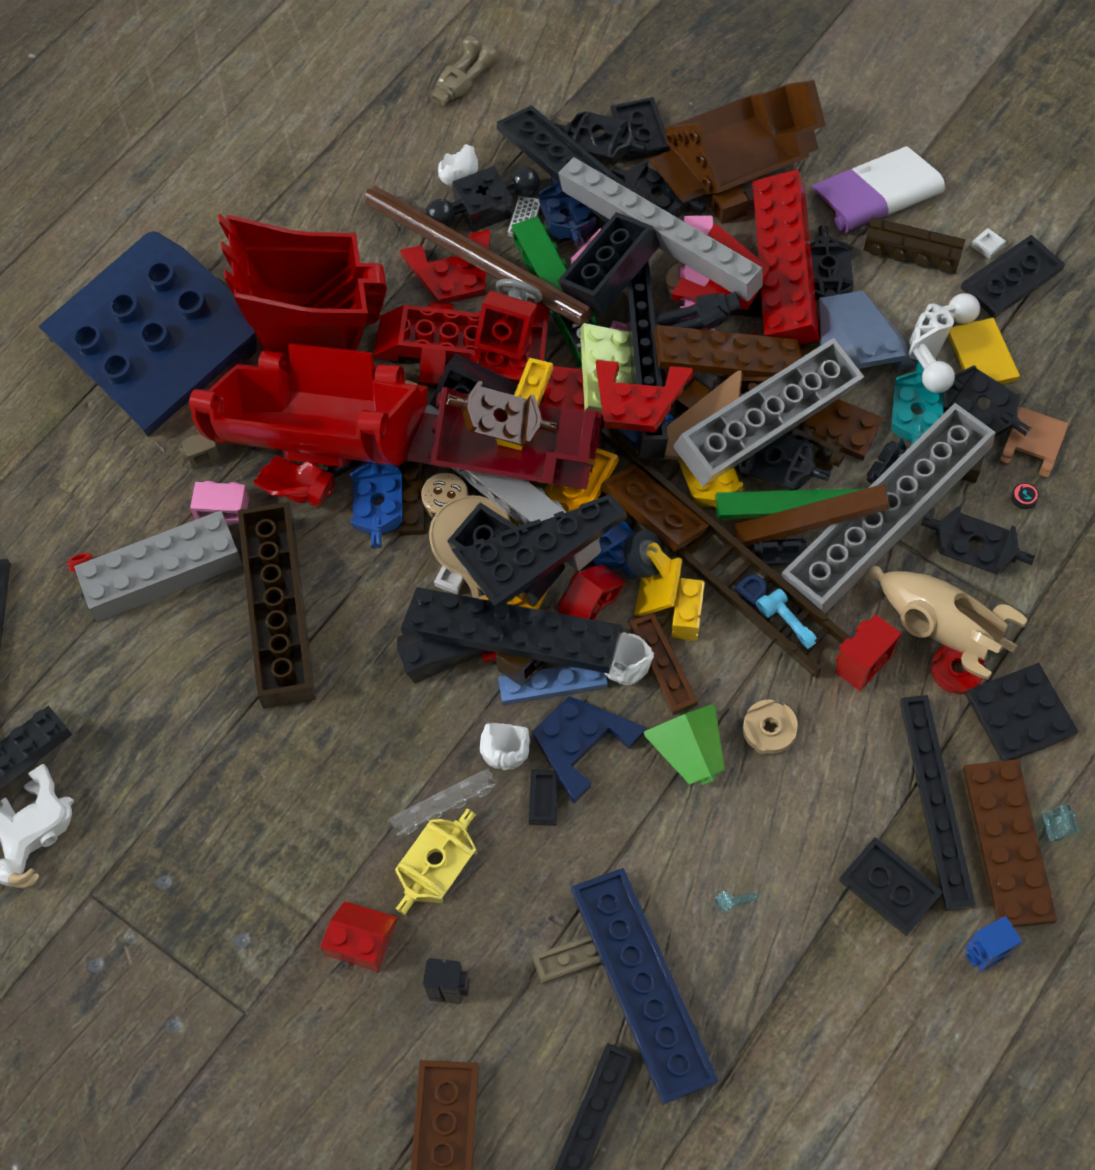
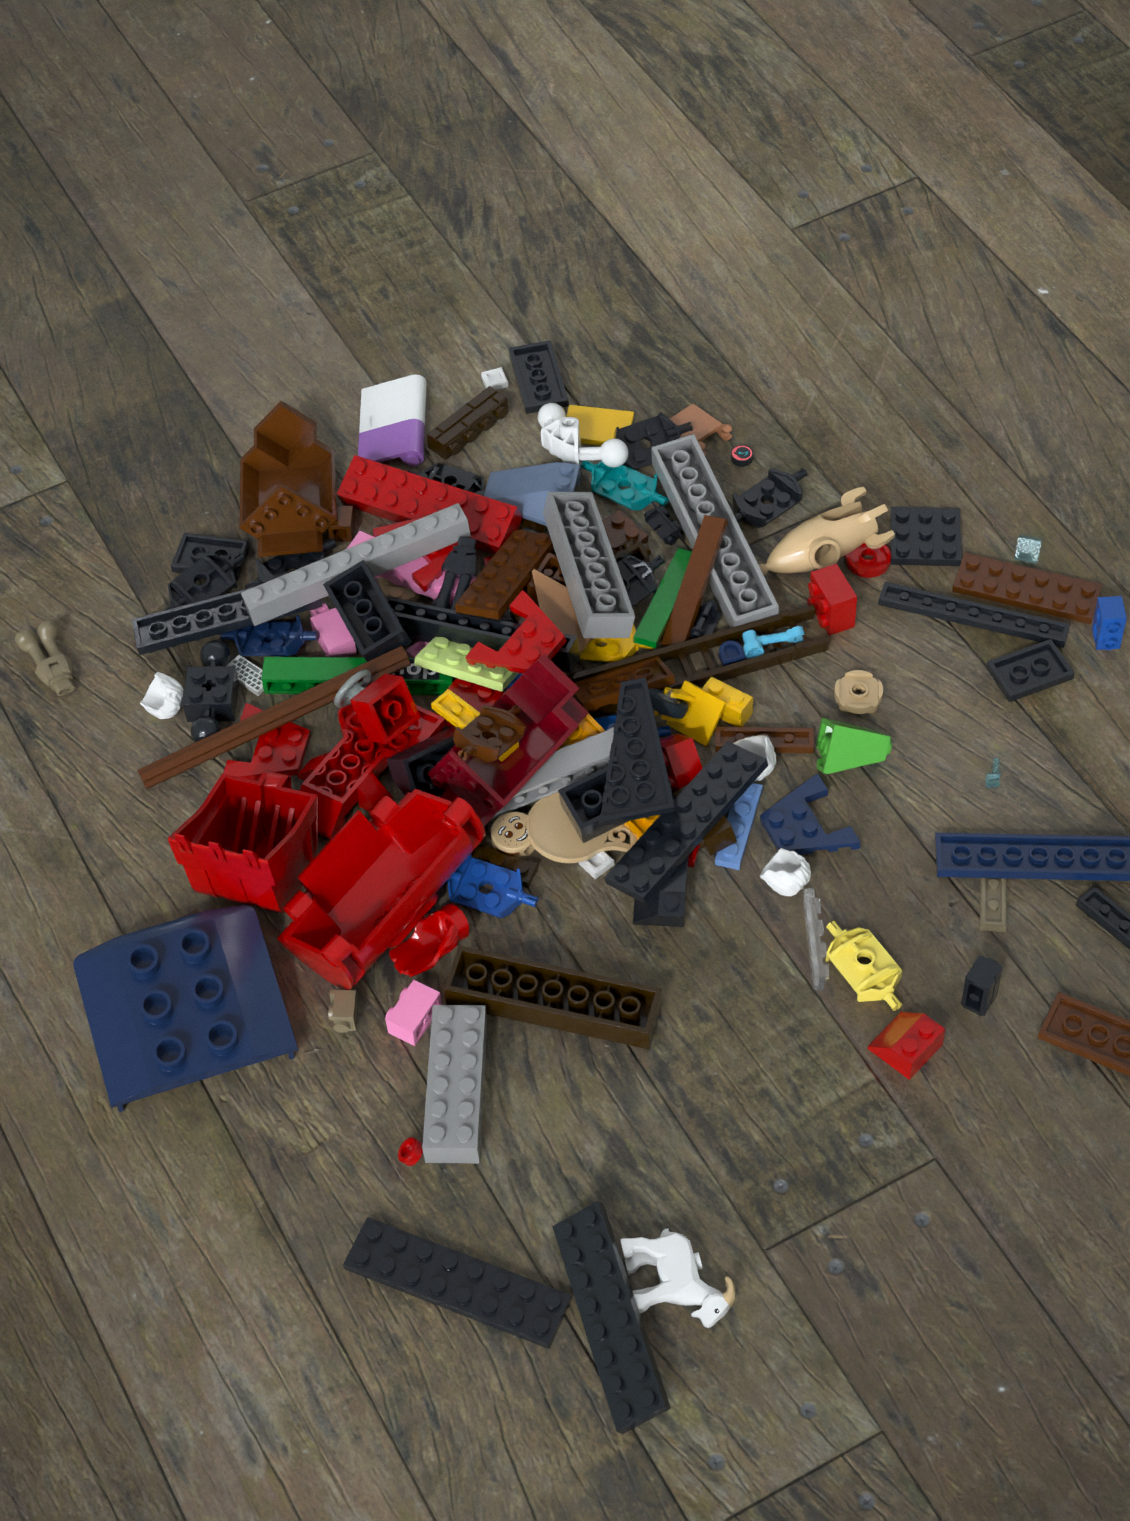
camera: 65 degrees left, 10 degrees down
(543, 798) = (842, 869): black tile -> none

